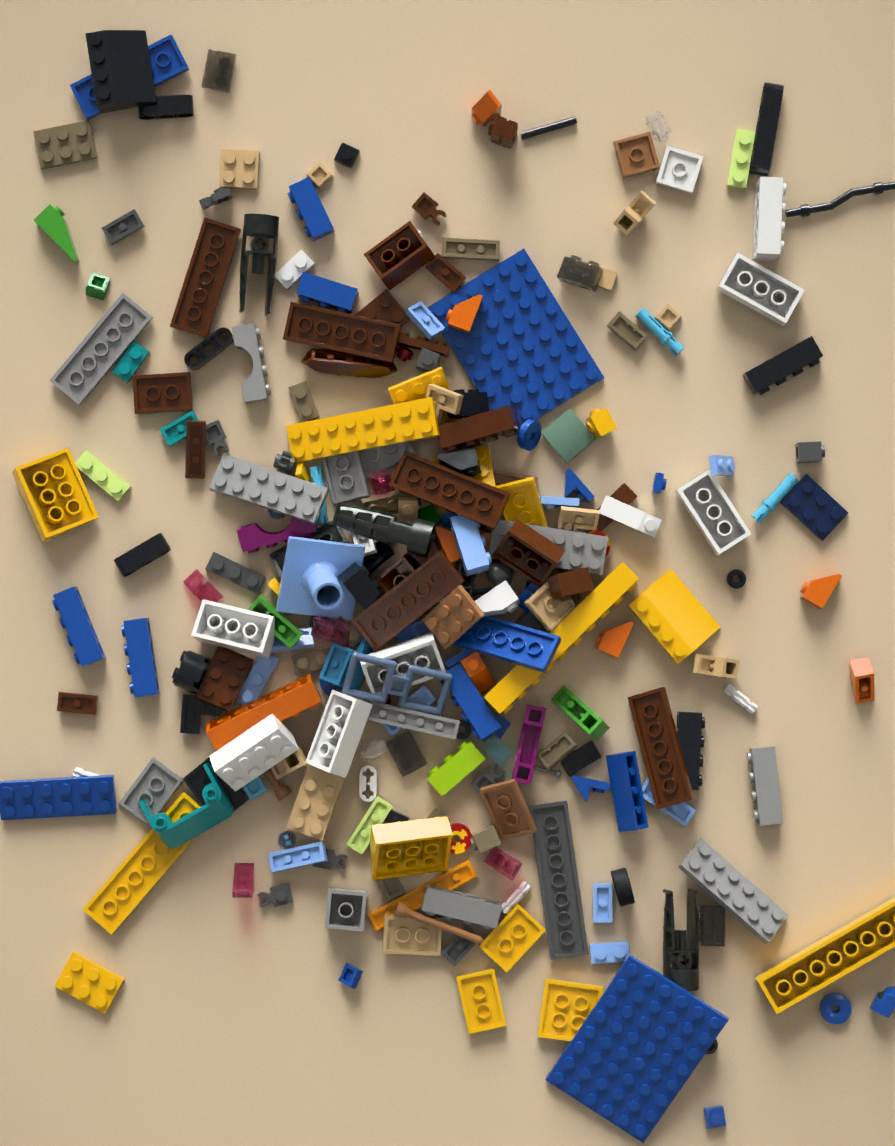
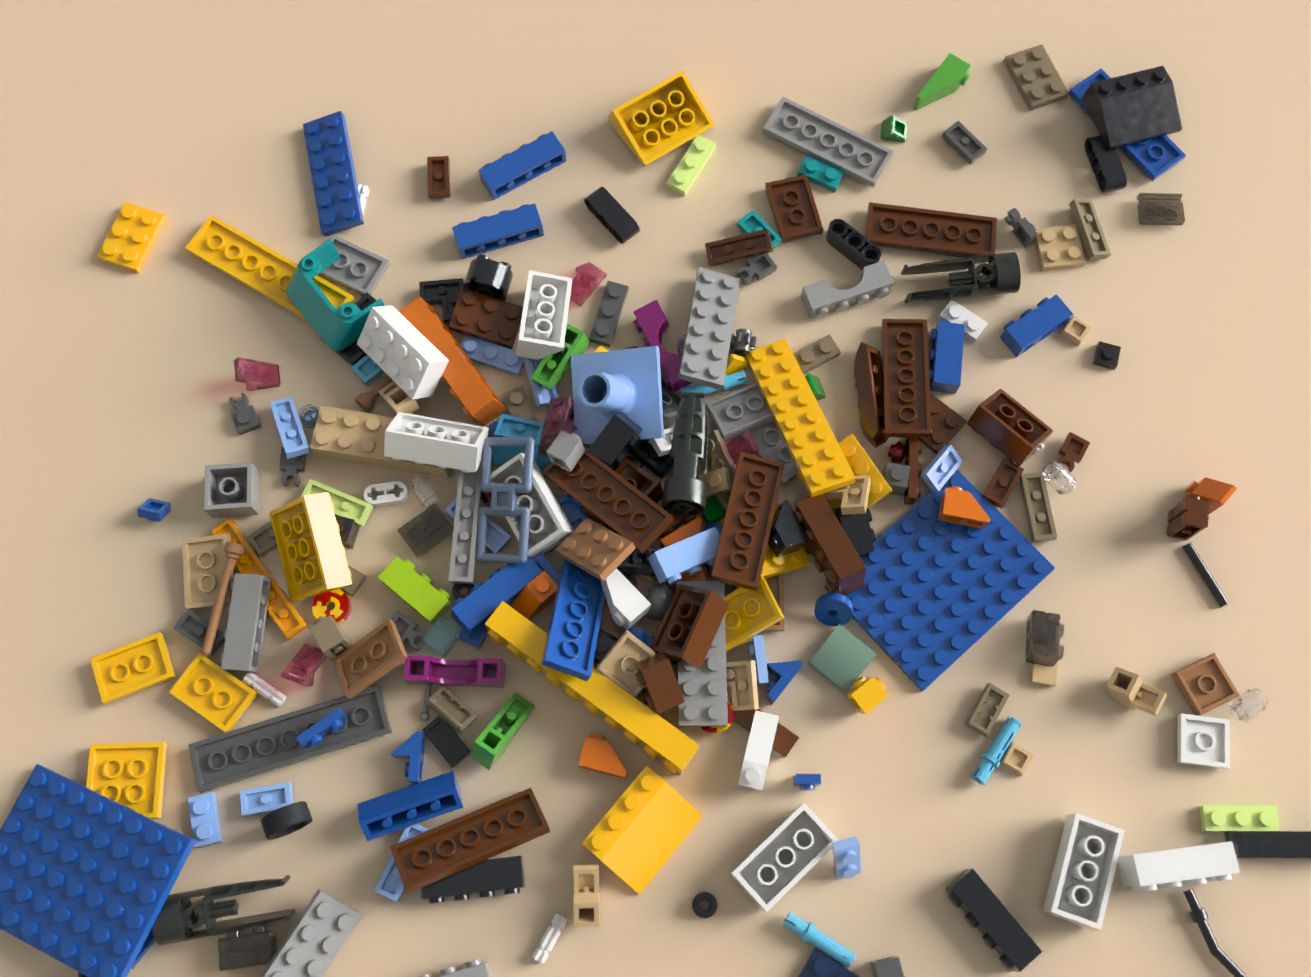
camera: 75 degrees right, 15 degrees down
(227, 138) = (1089, 229): none -> dark tan plate
(334, 409) = (815, 386): none -> green slope
(363, 627) = (566, 450): none -> light grey brick
(450, 226) = (1059, 478): none -> clear brick
(562, 859) = (314, 735): none -> blue plate

